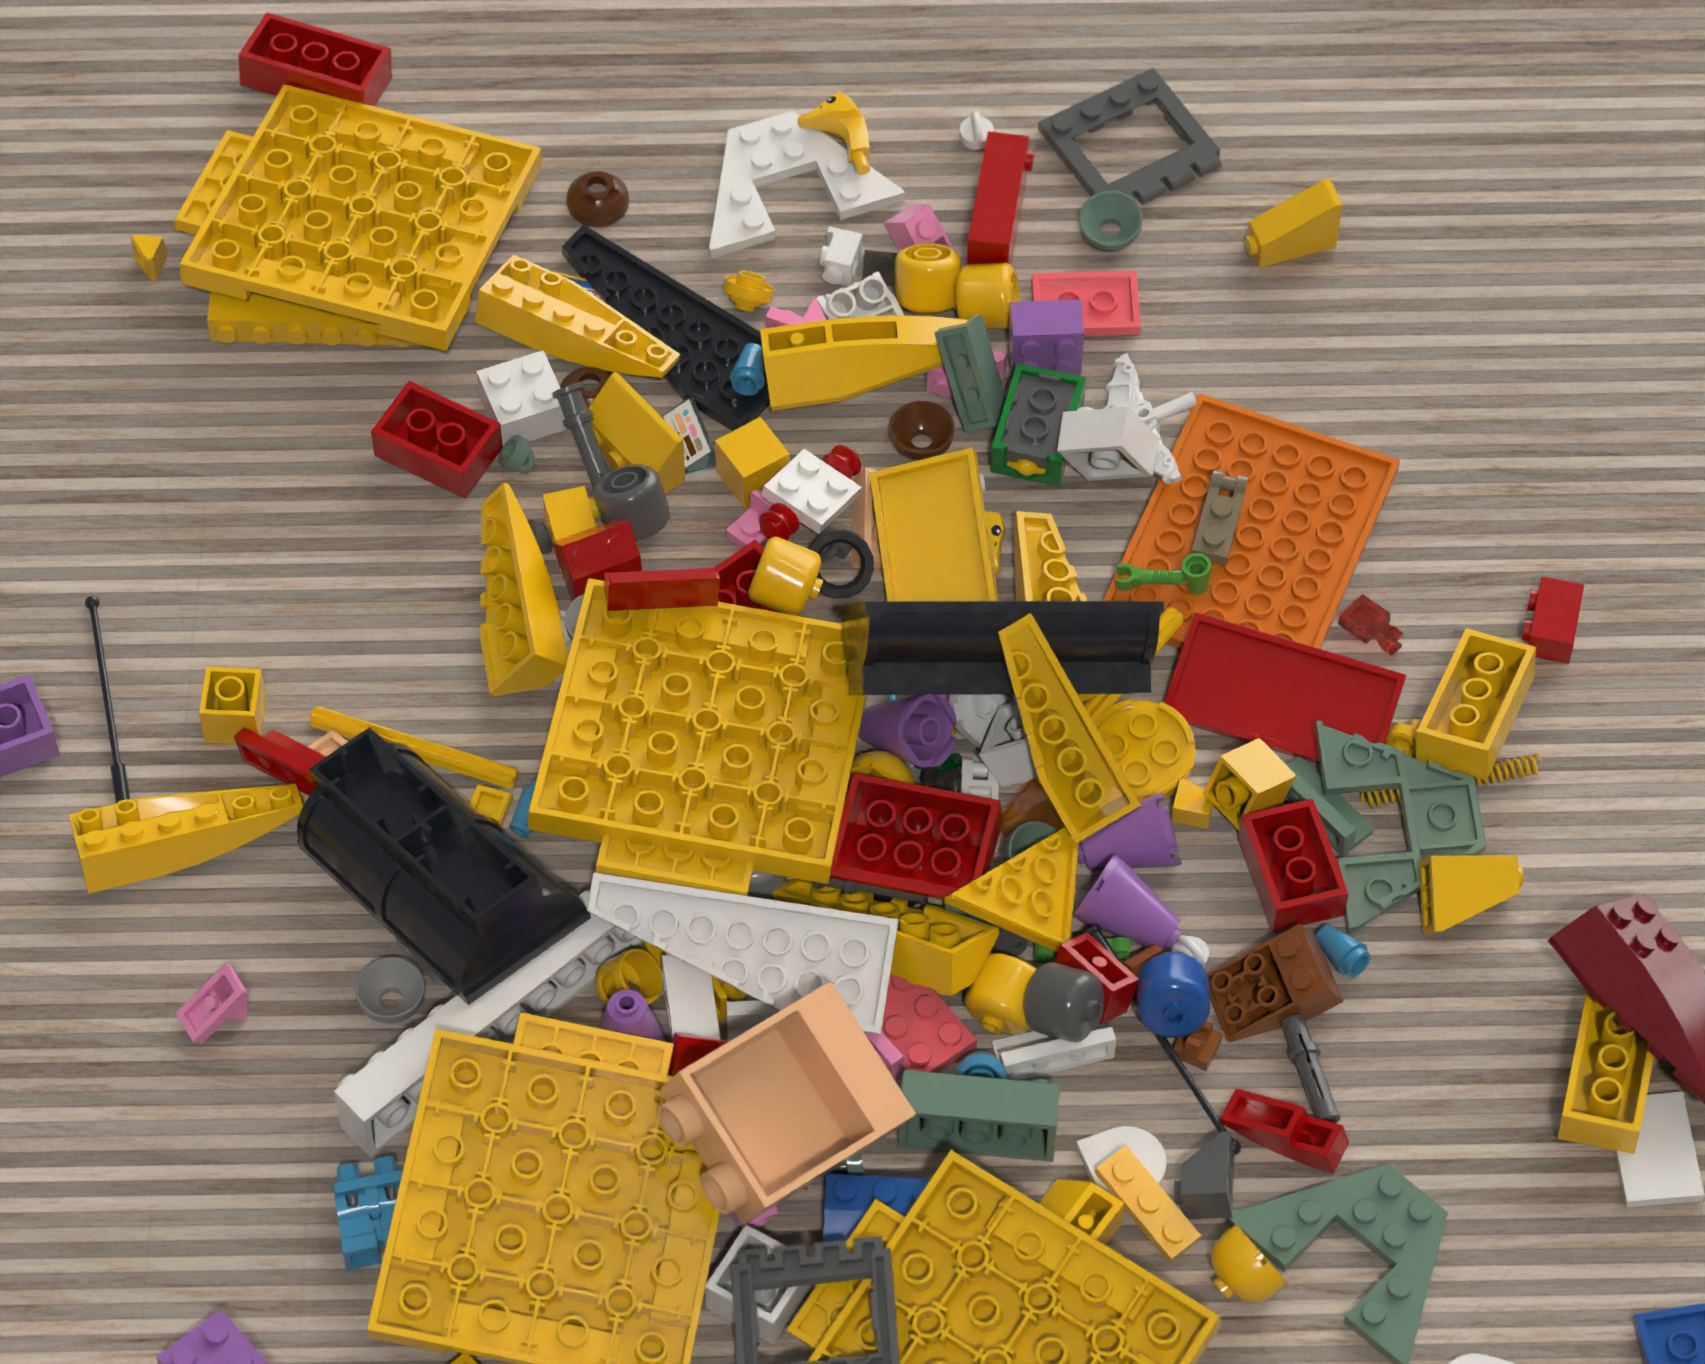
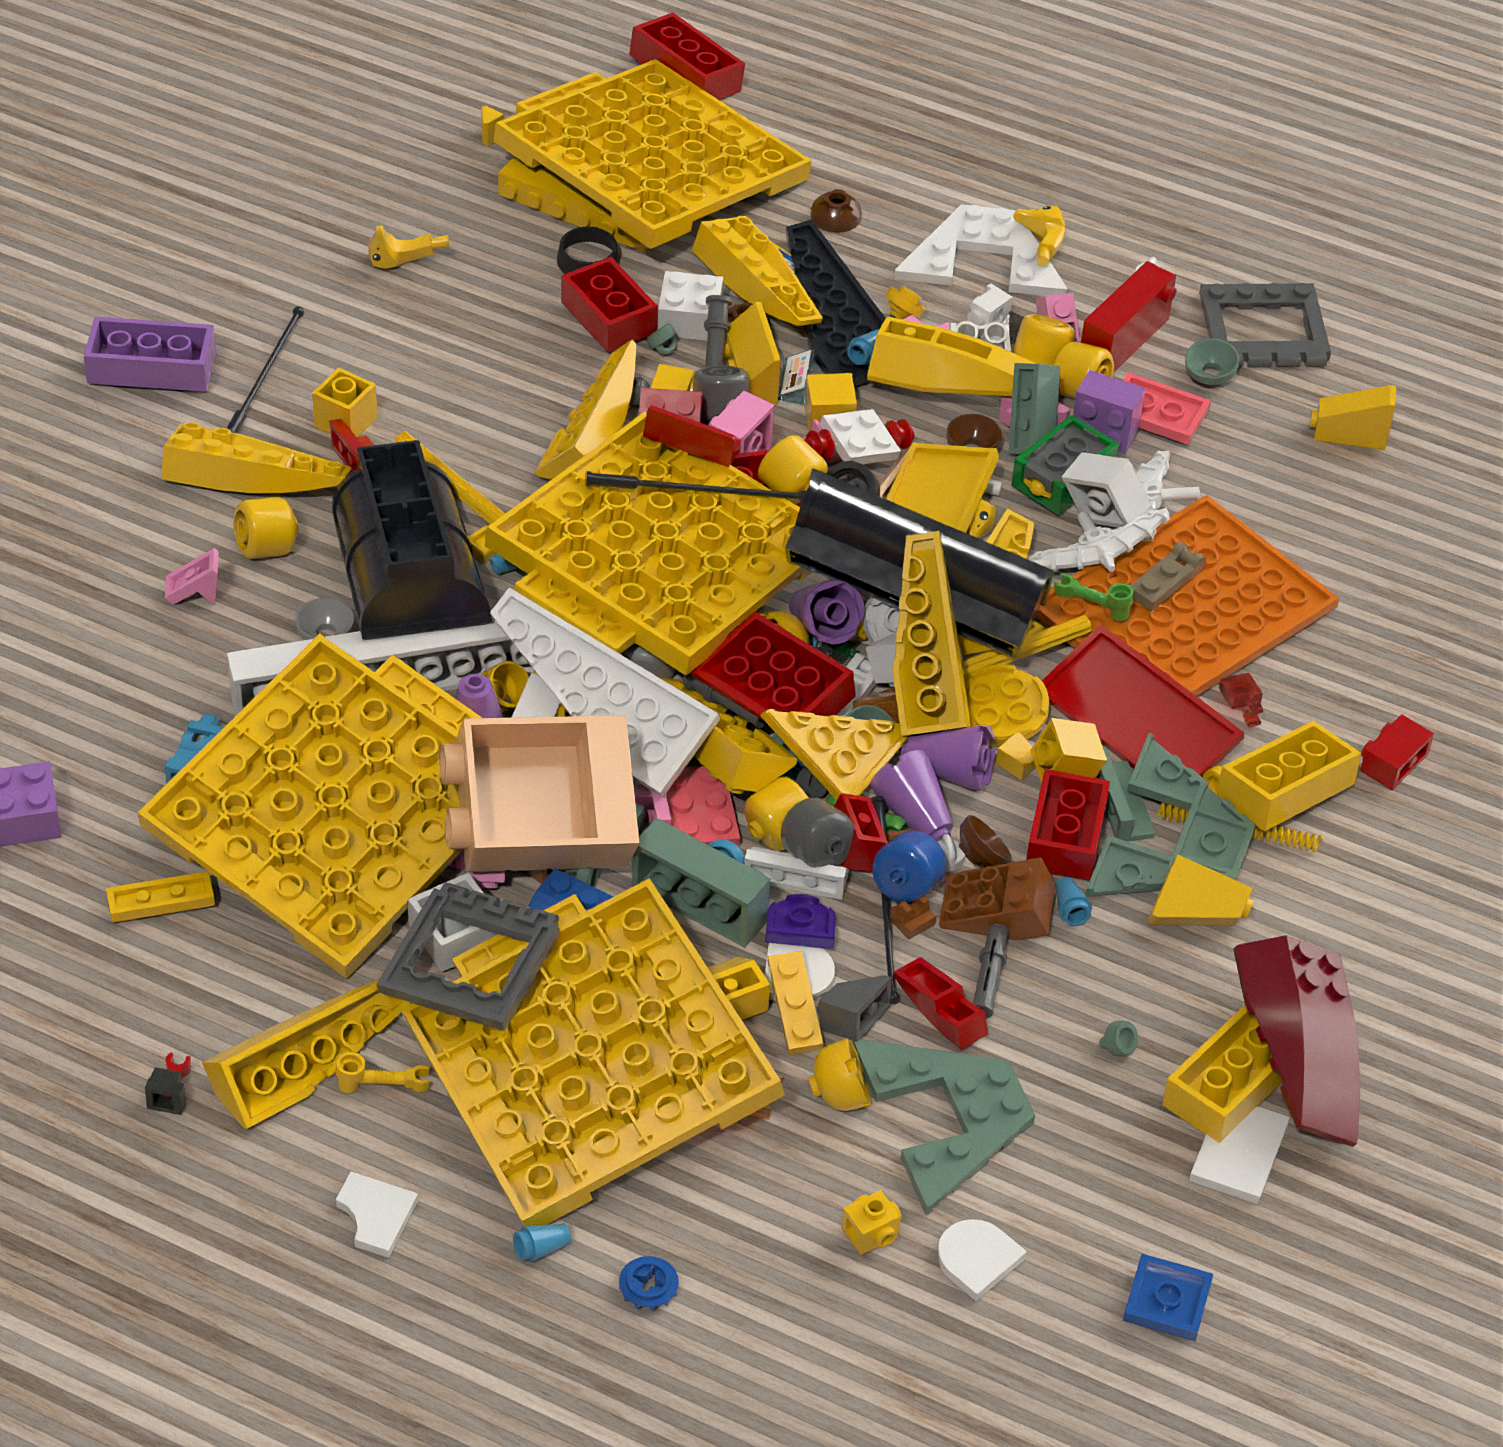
camera: 25 degrees right, 10 degrees down
(145, 479) = (389, 252): none -> yellow animal
(249, 905) = (265, 528): none -> yellow head
(369, 404) = (584, 234): none -> black tyre
(639, 678) = (633, 482): none -> black piece
(685, 535) = (749, 421): none -> bright pink brick
(1097, 1107) = (800, 922): none -> dark purple tile
(1131, 509) = (1101, 544): none -> white bar
(1222, 928) = (982, 844): none -> reddish brown piece
(1477, 1085) = (1120, 1038): none -> sand green tile

